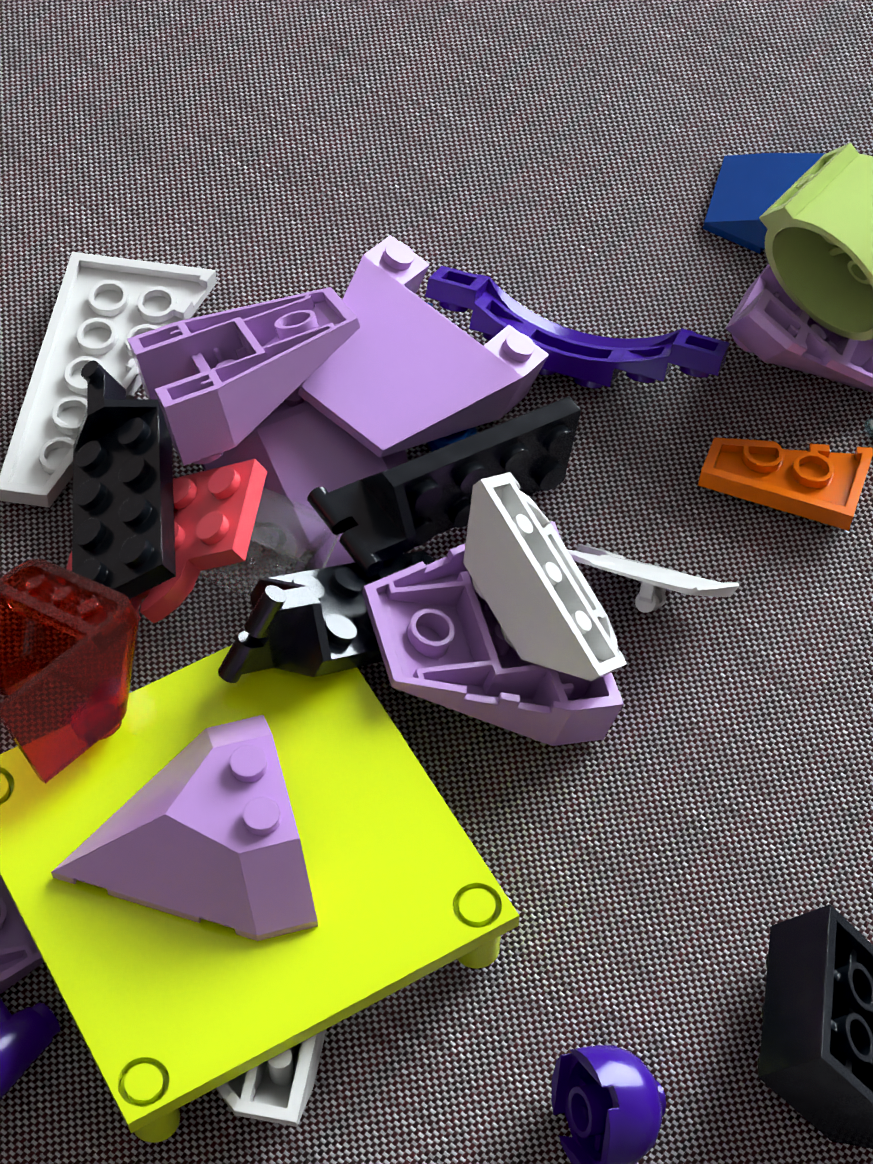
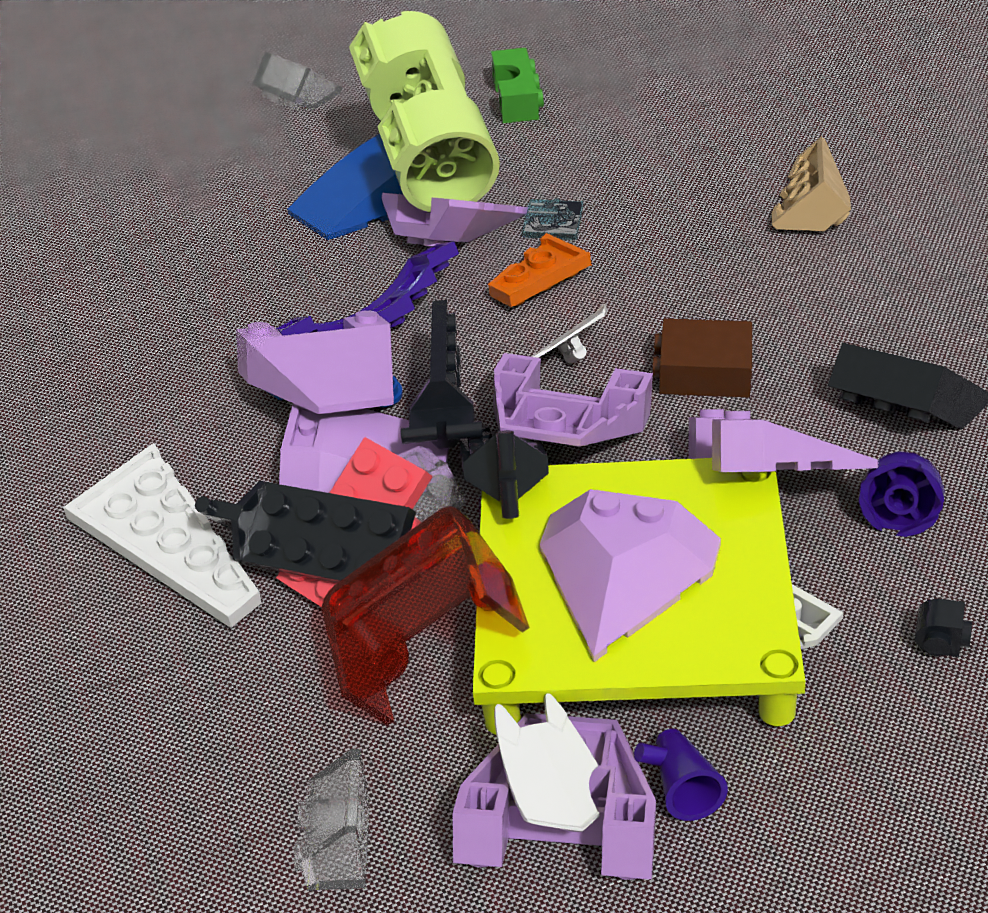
camera: 55 degrees left, 15 degrees down
(236, 366) = (272, 423): lavender wedge -> none
(535, 584) = (559, 361): white wedge -> none
(548, 917) = (762, 446): none -> lavender wedge
(741, 752) = (704, 357): none -> reddish brown brick

